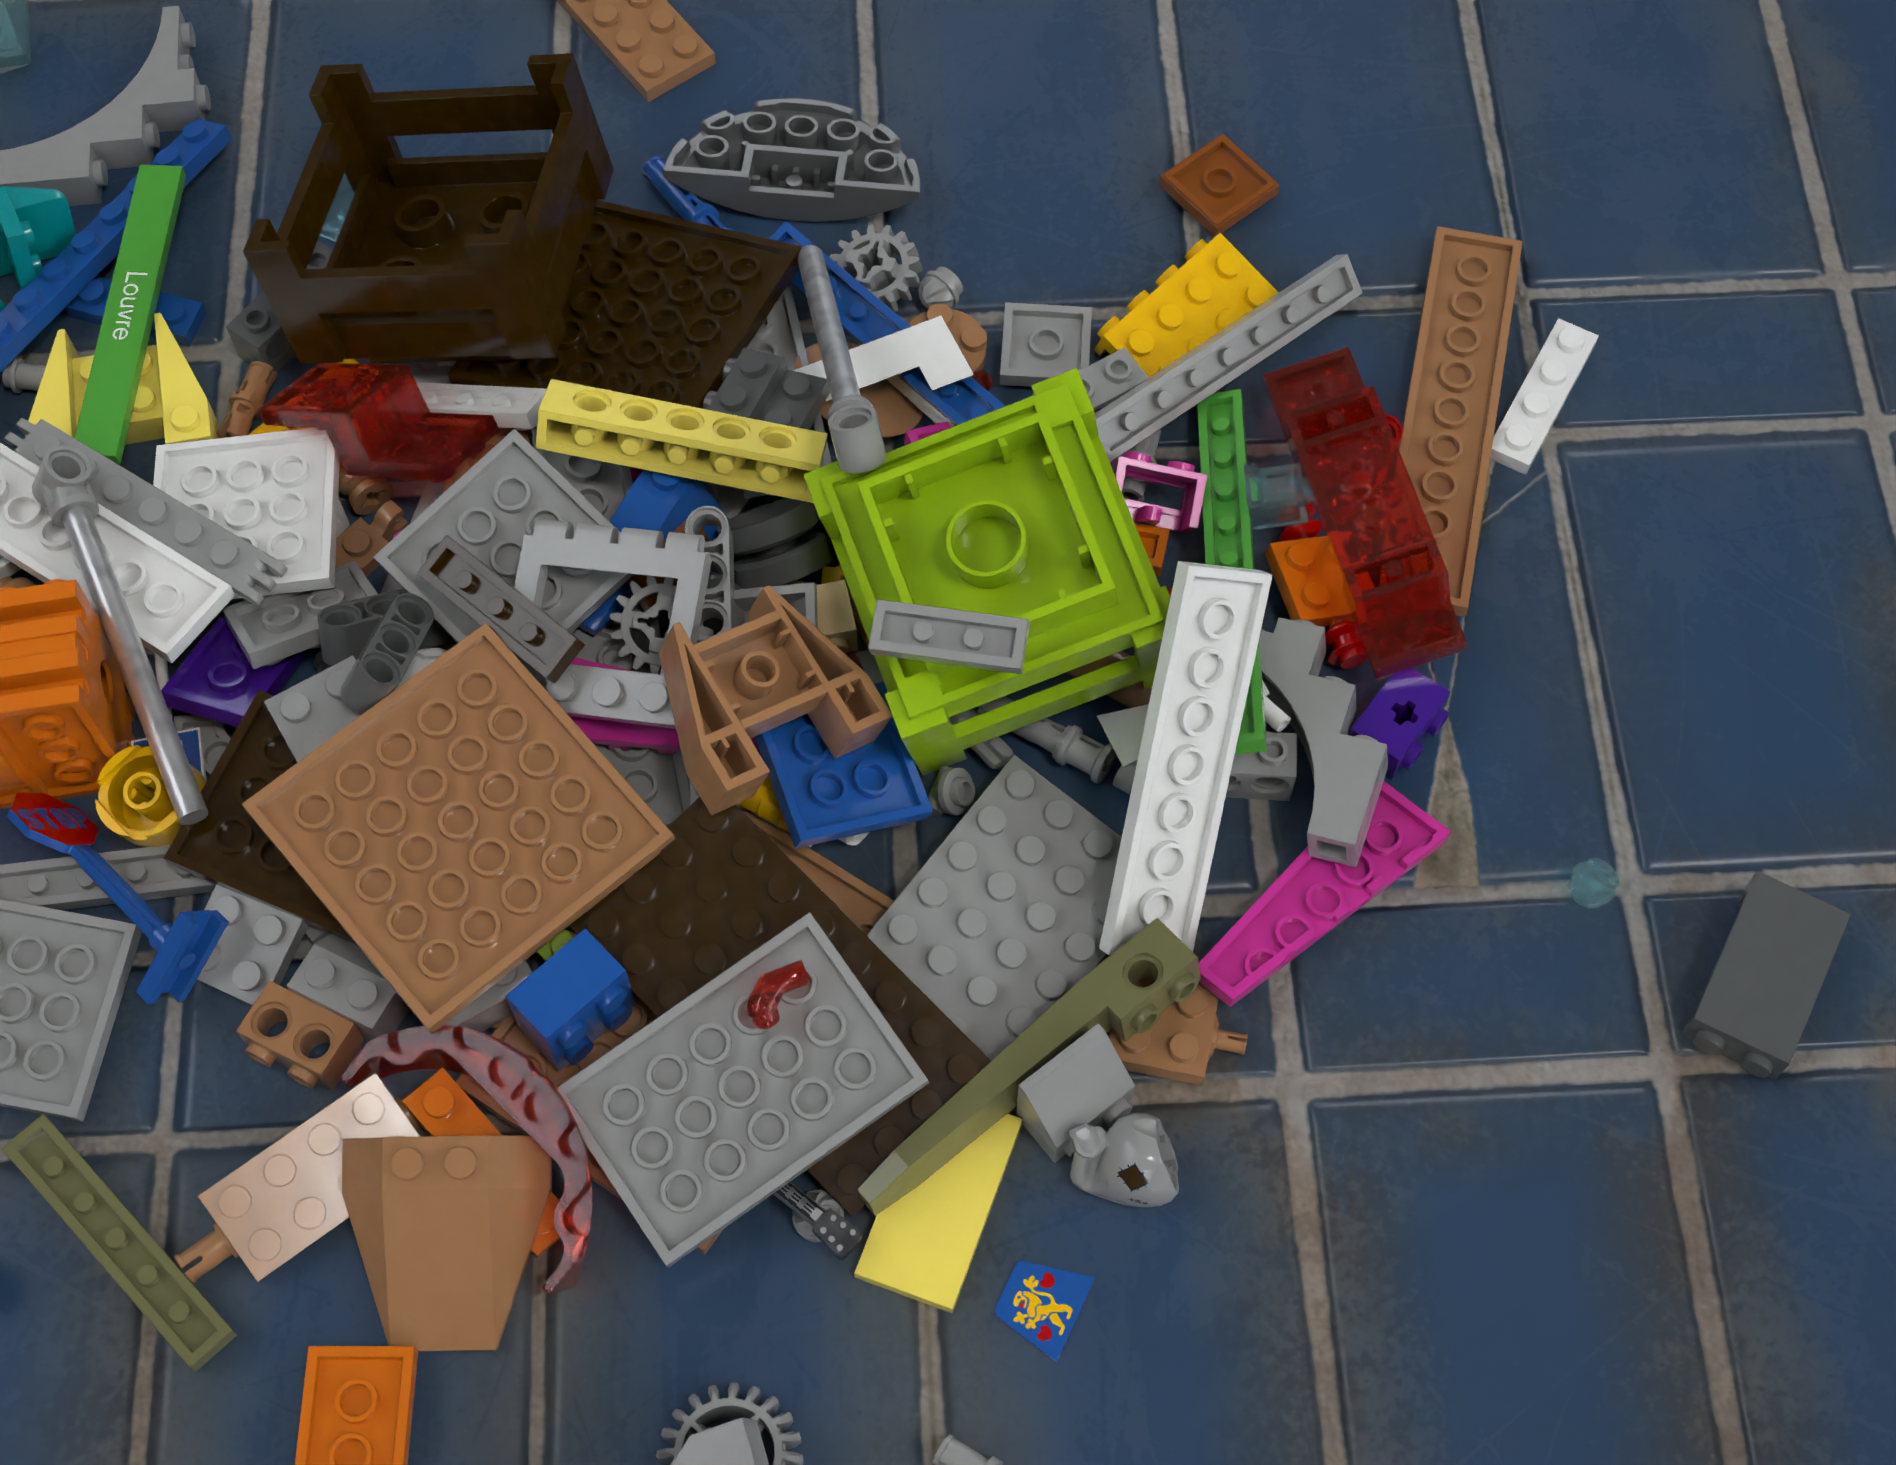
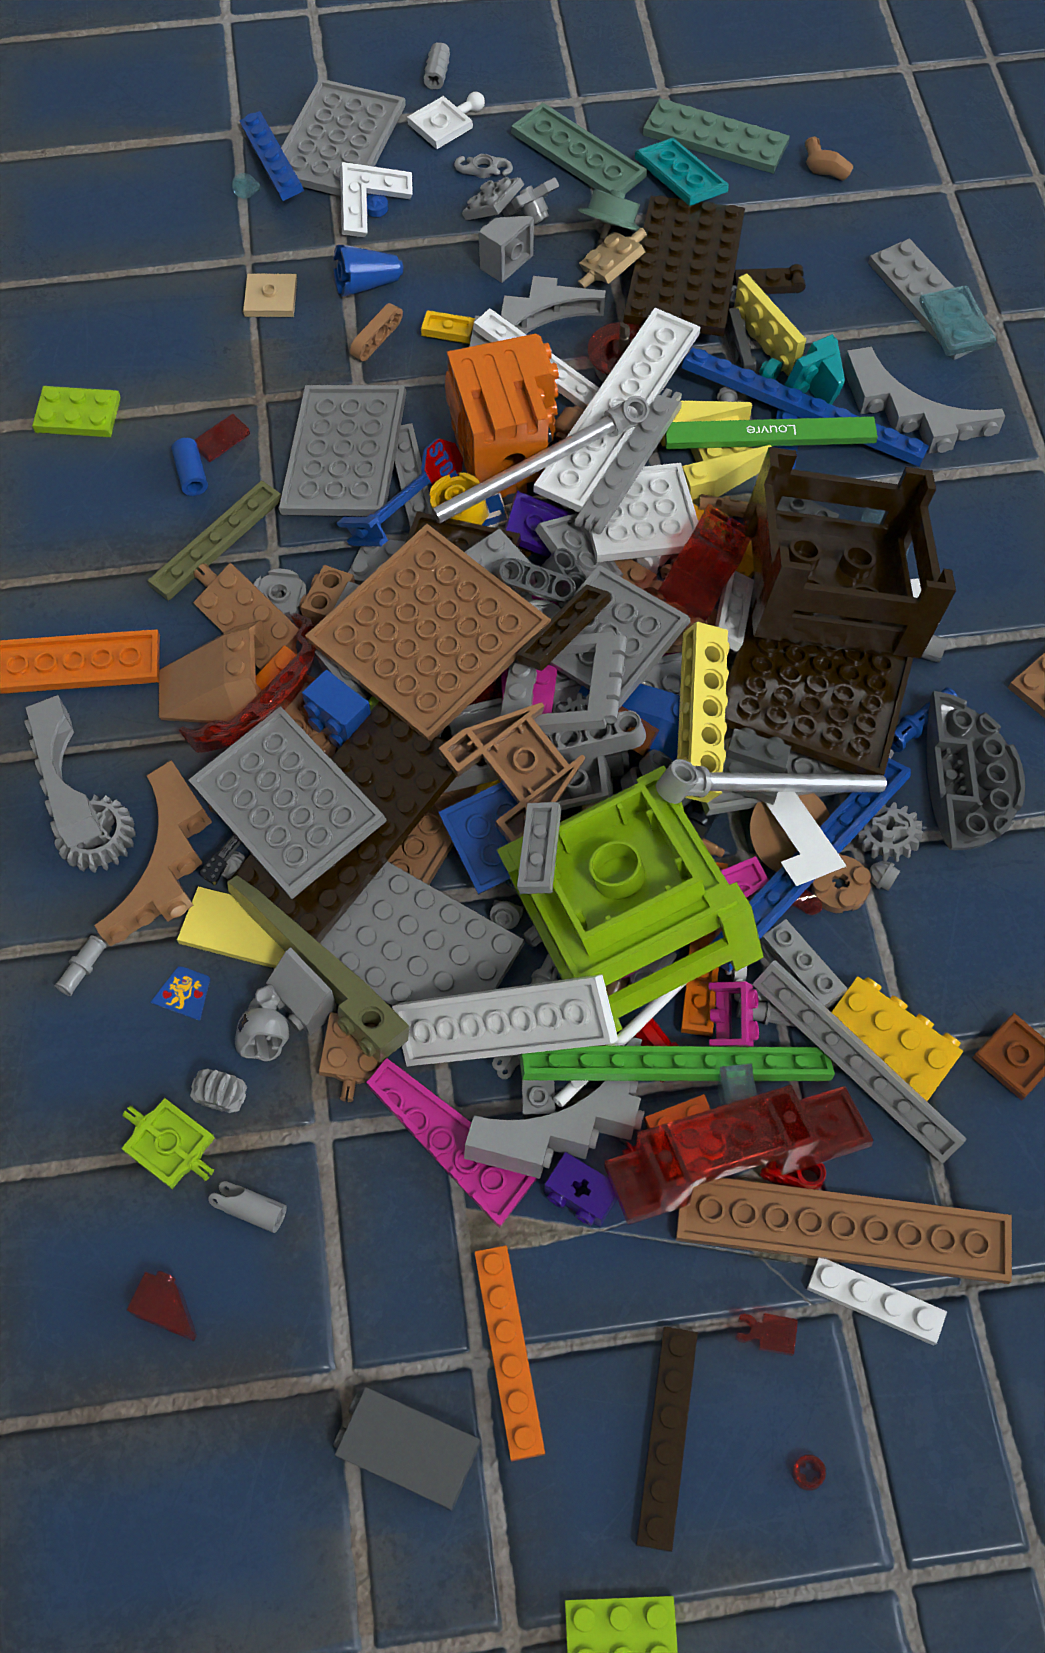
camera: 85 degrees right, 0 degrees up
(256, 1102) = (285, 581): none -> light grey plate
(716, 1297) = (173, 857): none -> medium nougat arch
(768, 992) = (325, 796): clear red arm -> none
(1043, 342) = (852, 945): light grey plate -> none
(1235, 1230) = (218, 1090): none -> light grey gear
(1312, 1320) = (168, 1143): none -> lime plate
(1418, 1189) = (249, 1206): none -> light grey piece
(1574, 1323) = (162, 1305): none -> clear red slope
(1592, 515) = (775, 1333): none -> clear red plate
(1593, 883) = (470, 1325): clear light blue plate -> none
(1621, 840) = (509, 1354): none -> orange plate
(1727, 655) = (667, 1440): none -> dark brown plate
(1774, 499) = (800, 1478): none -> clear red bush

